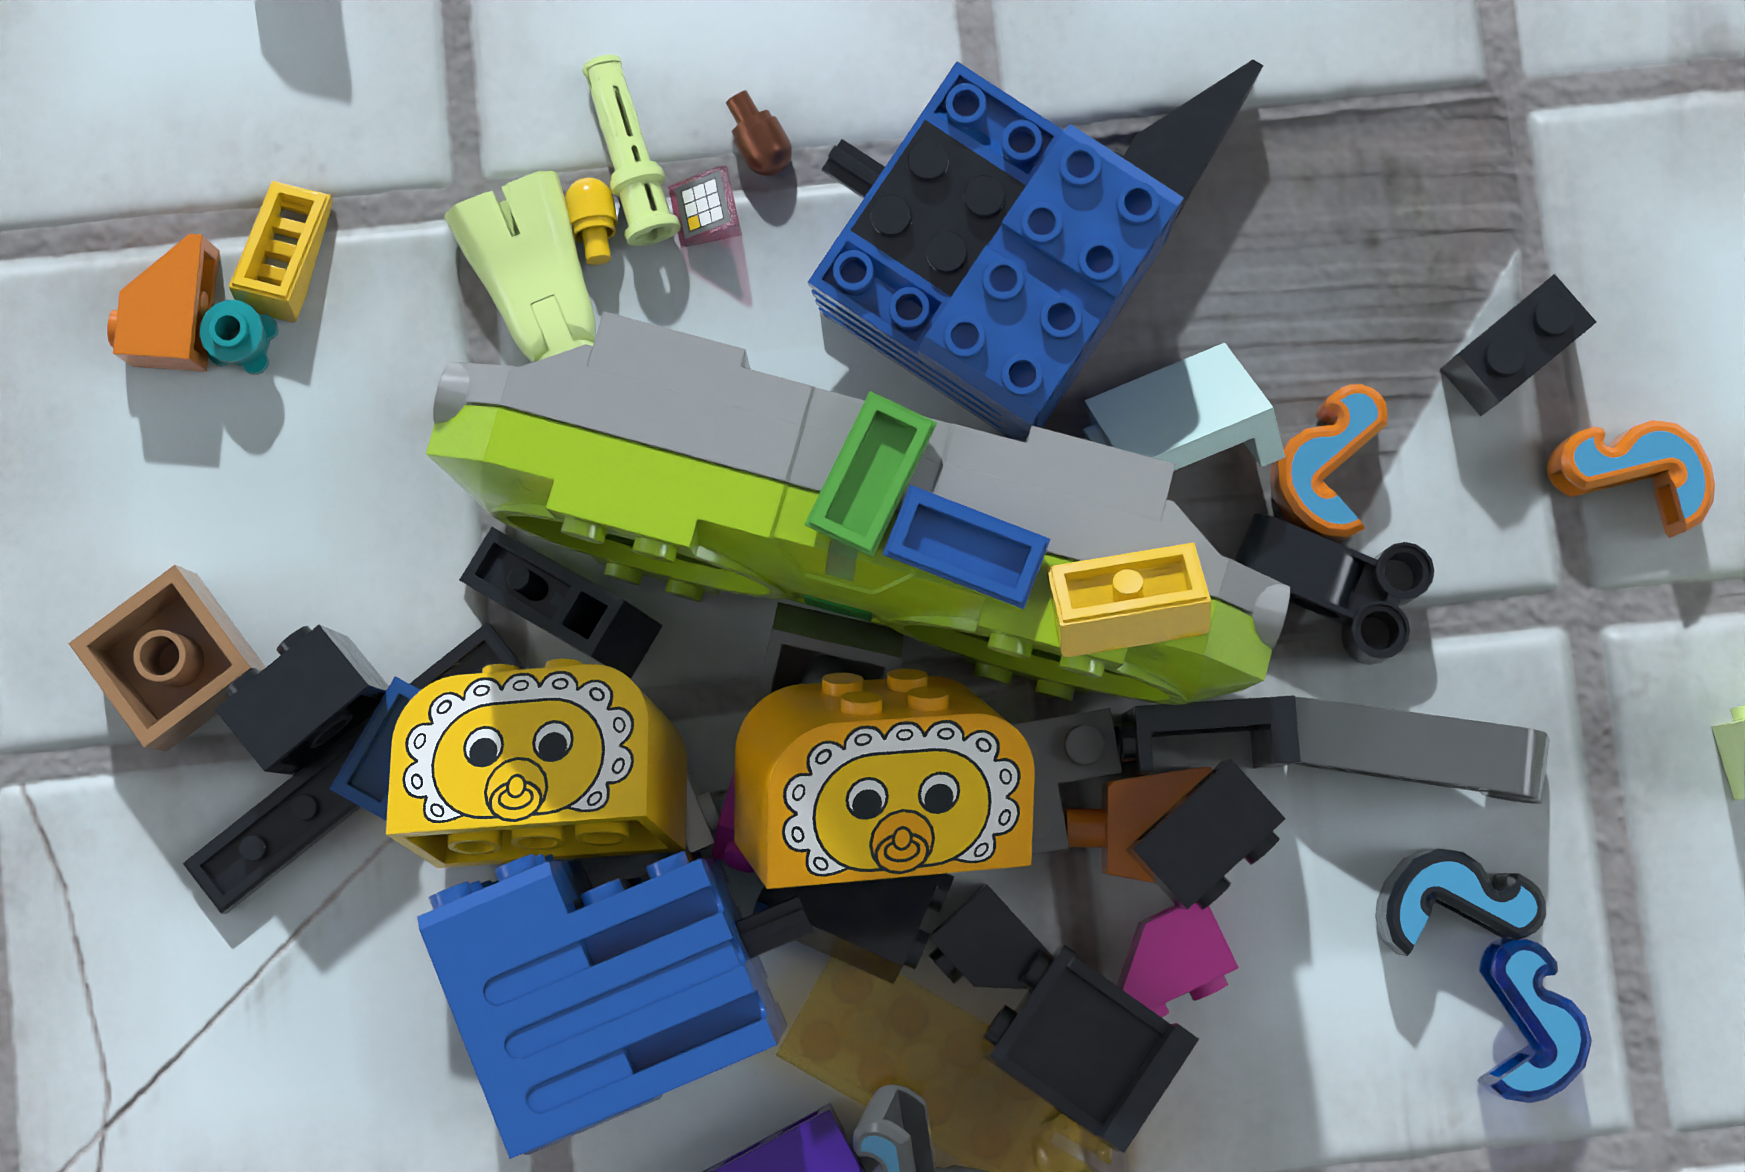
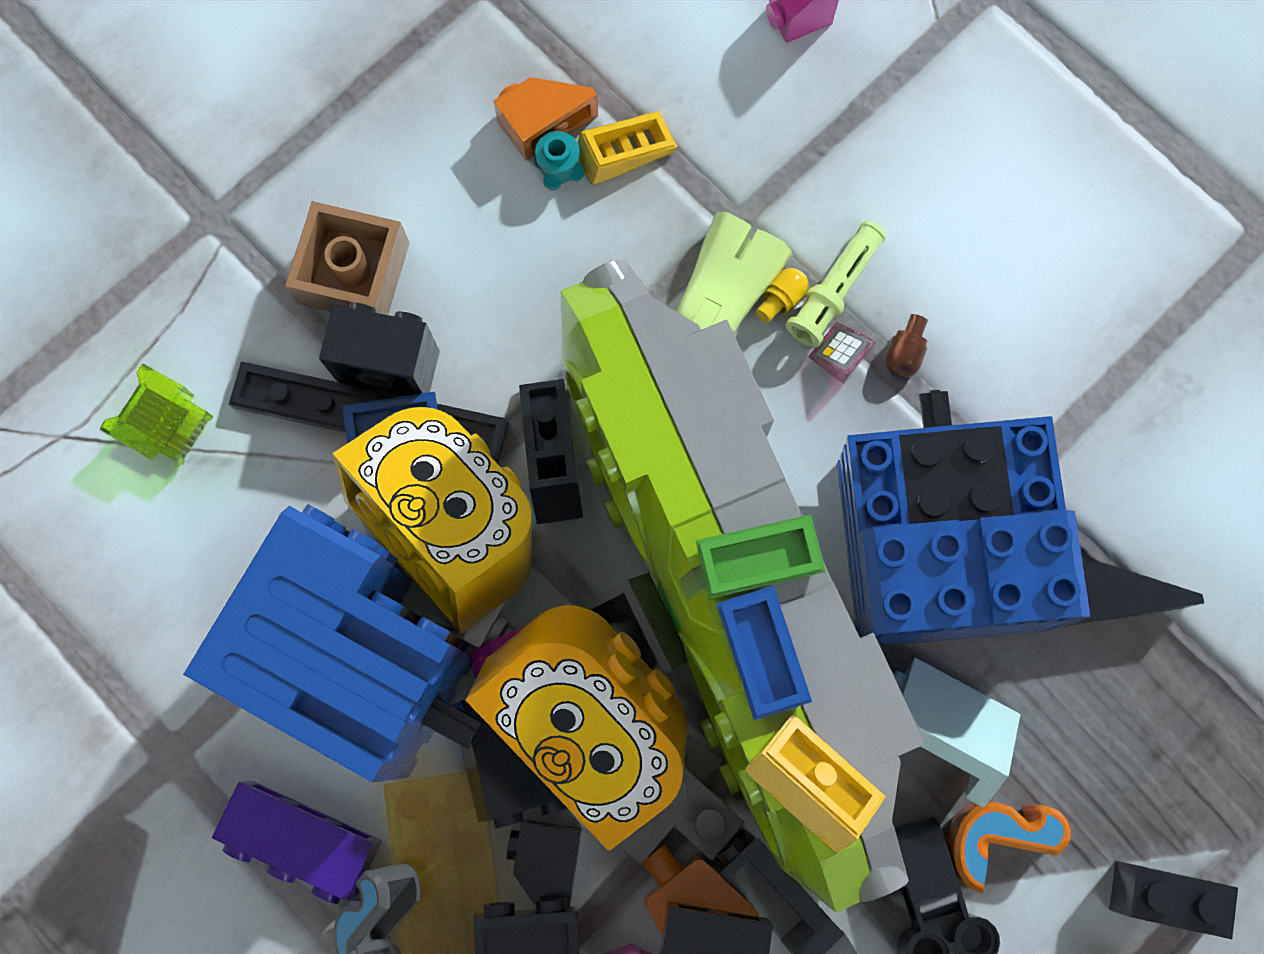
camera: 50 degrees right, 5 degrees down
(175, 1002) = (158, 418): none -> clear neon green piece

